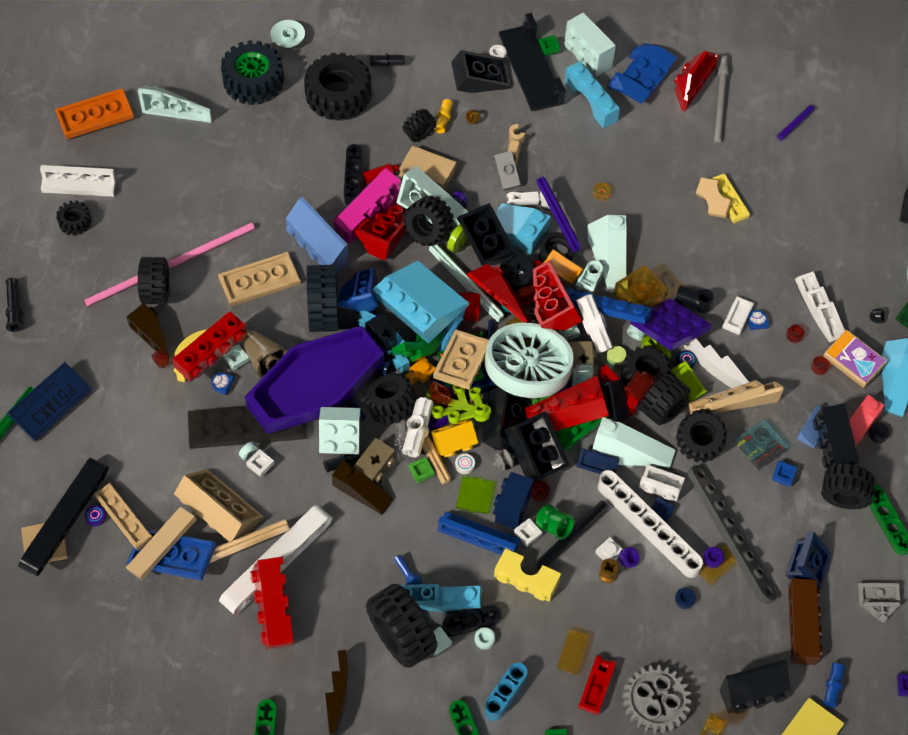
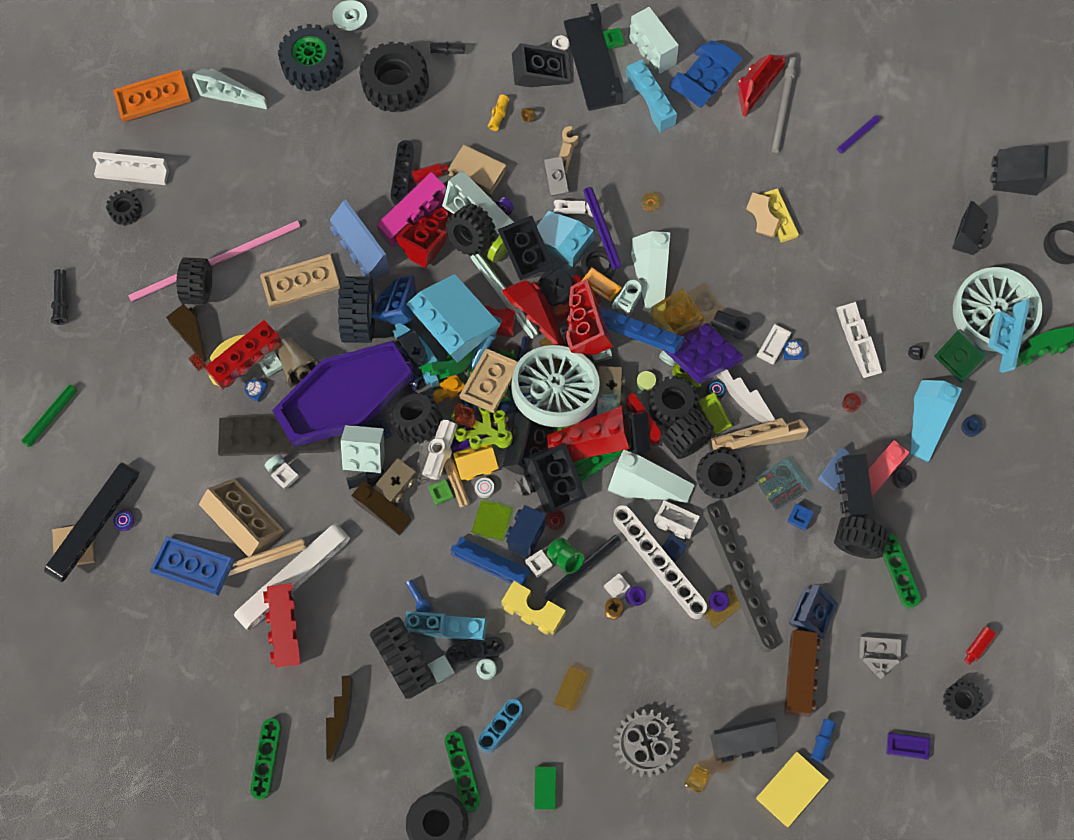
camera: 10 degrees right, 10 degrees up
(49, 401) = (87, 401): dark blue tile -> none
(123, 516) = (149, 524): tan tile -> none
(161, 543) = (182, 555): tan tile -> none
(419, 125) = (472, 123): black tyre -> none
(594, 323) = (626, 348): white piece -> none
(596, 461) = (614, 494): dark blue tile -> none
(597, 685) = (590, 725): red plate -> none
(639, 385) = (662, 420): clear red brick -> none
(685, 598) = (686, 640): dark blue tile -> none
(795, 339) = (834, 363): clear red axle -> none
(855, 359) = (886, 399): piece -> none

